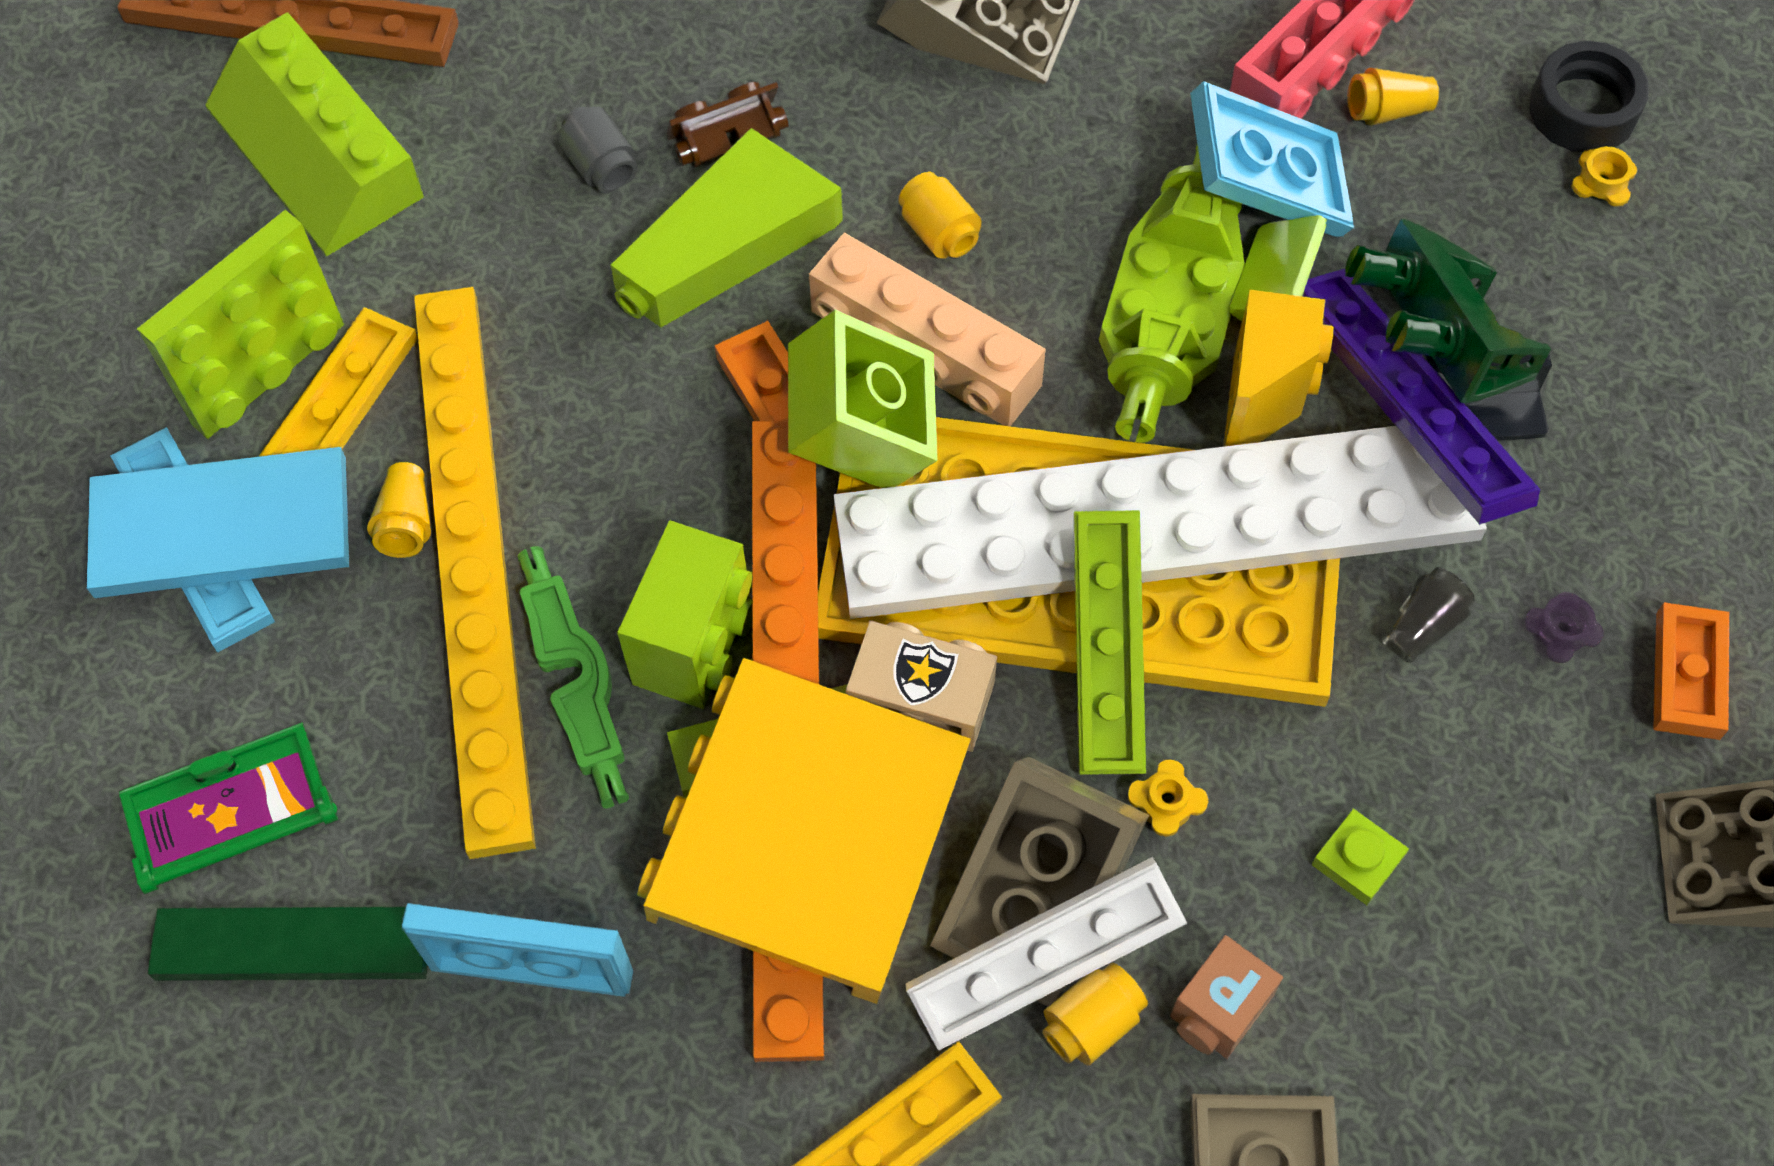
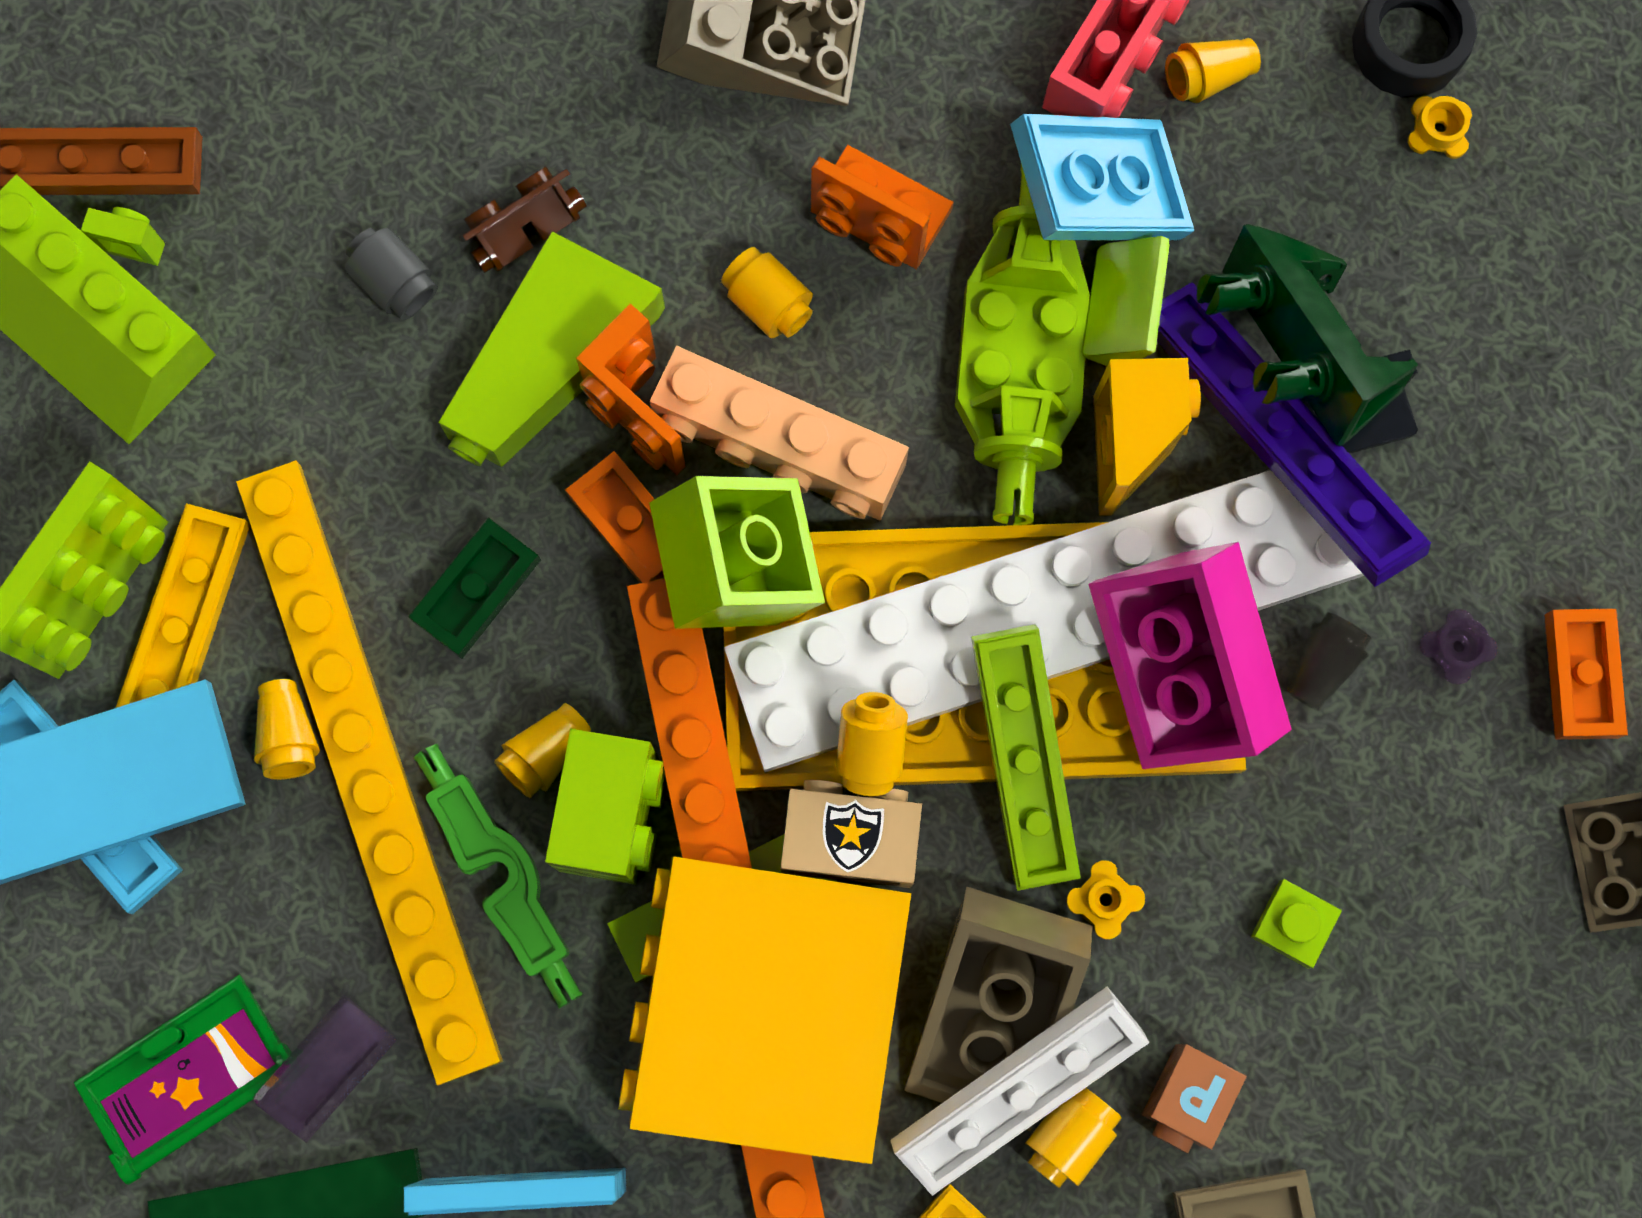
camera: 15 degrees left, 15 degrees up
(361, 816) = (324, 1068): none -> clear purple tile
(371, 81) = (124, 234): none -> lime plate
(610, 418) = (475, 588): none -> dark green plate
(623, 569) = (538, 753): none -> yellow cone
(784, 250) = (616, 368): none -> orange bracket
(957, 591) = (871, 743): none -> yellow brick
(1053, 159) = (877, 207): none -> orange bracket
(1287, 565) = (1191, 658): none -> dark pink slope

